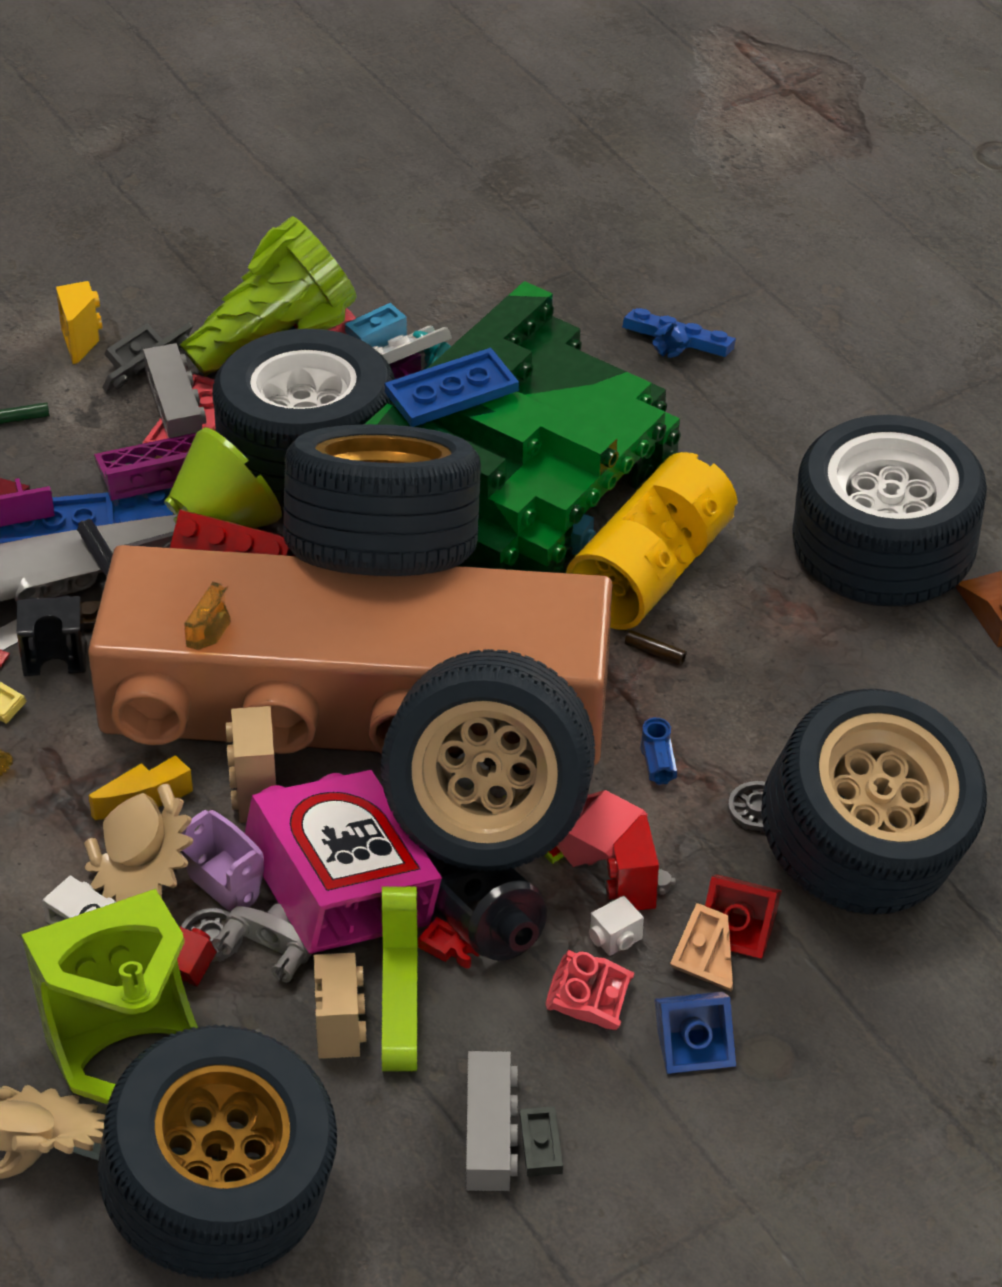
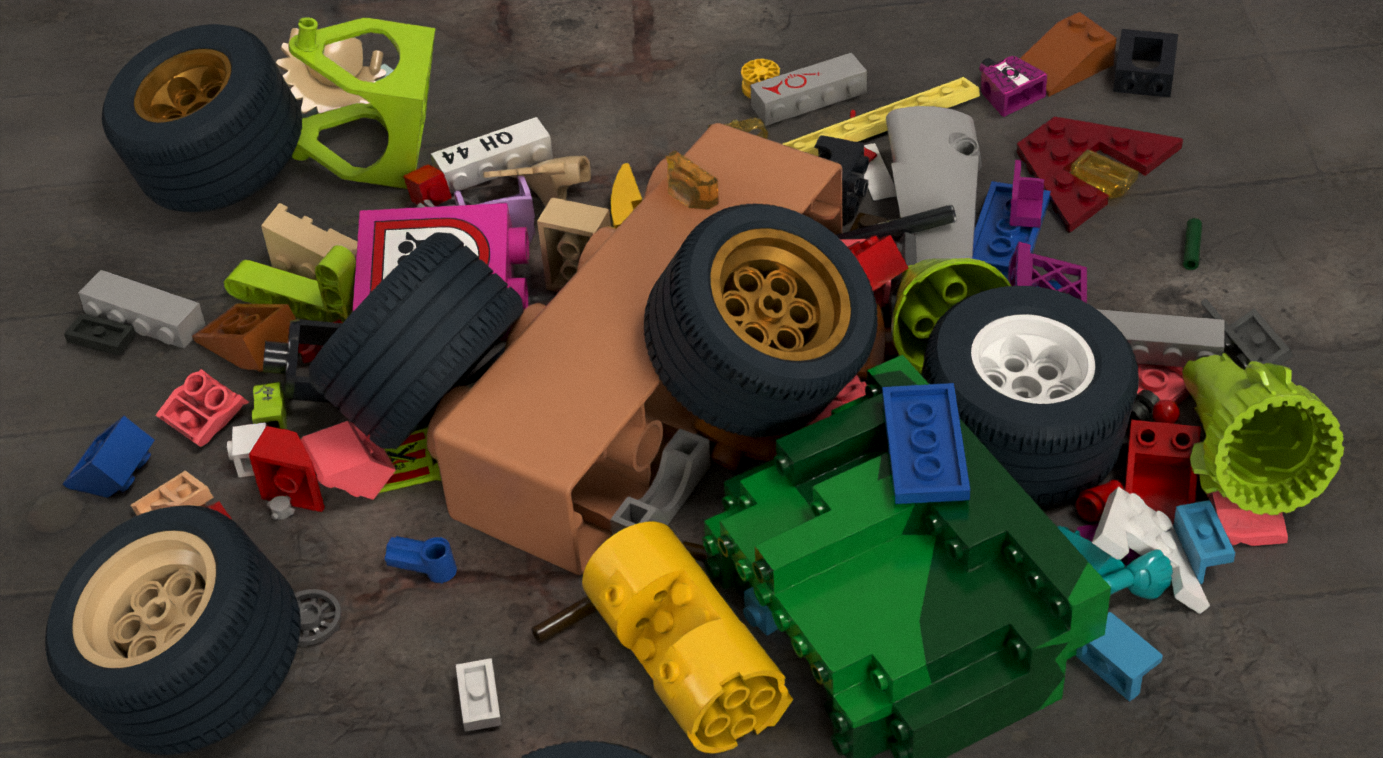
camera: 120 degrees right, 0 degrees up
(79, 318) = (1309, 293): yellow slope -> none
(473, 1005) = (242, 333): none -> dark orange slope
(570, 933) = (269, 404): none -> lime leg
(761, 663) = (478, 695): none -> white plate

